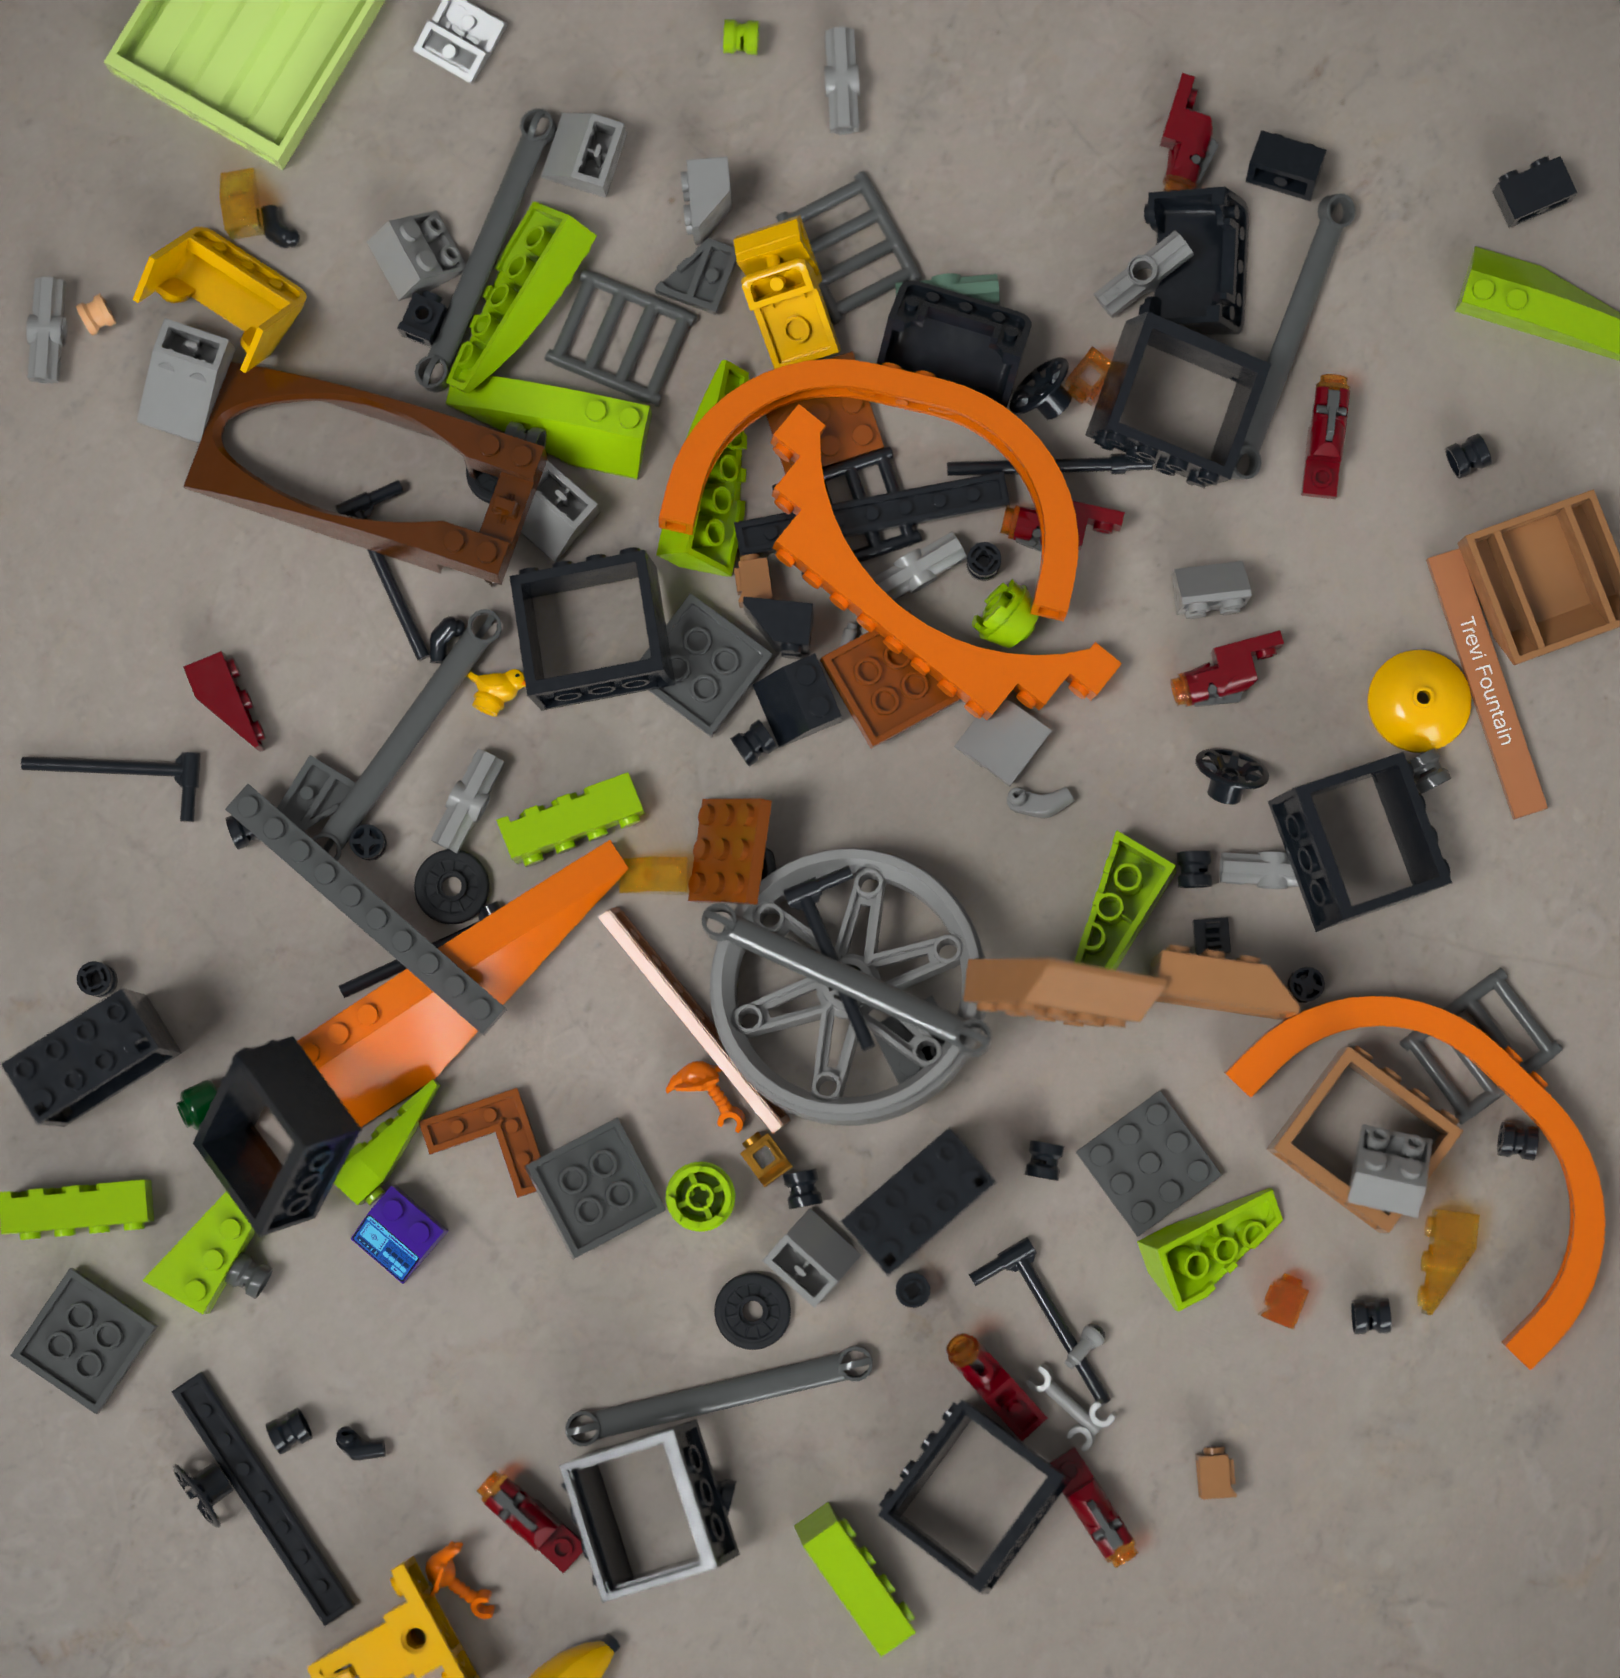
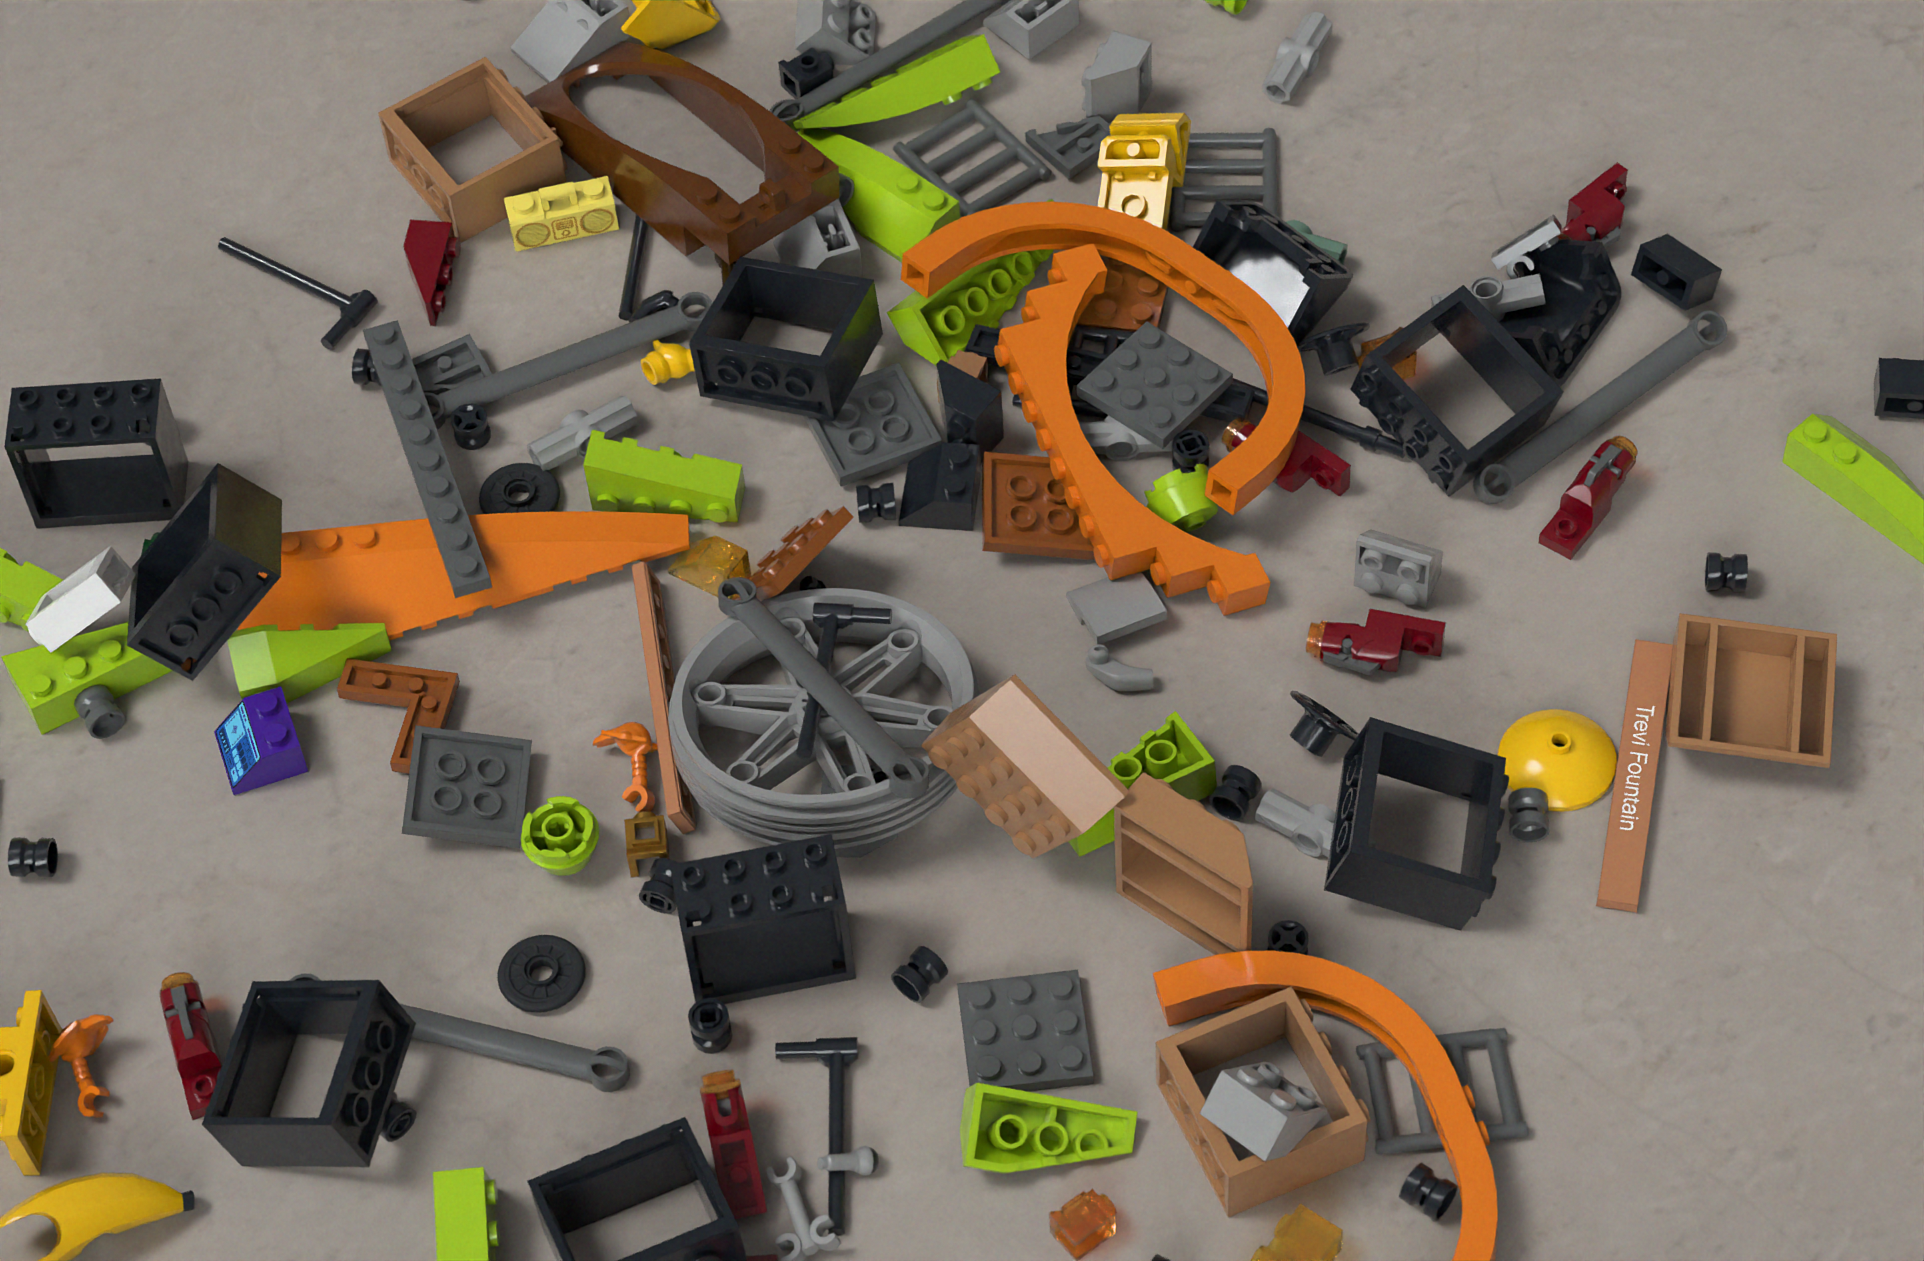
camera: 25 degrees right, 30 degrees down
(133, 532) = (451, 107): none -> medium nougat window
(190, 1174) = (80, 599): none -> white window
(305, 585) = (561, 213): none -> light yellow piece
(356, 1447) = (83, 904): black arm -> none
(812, 1257) = (628, 946): light grey slope -> none
(922, 513) = (1154, 384): none -> dark grey plate
(1156, 210) = (1540, 236): none -> plate

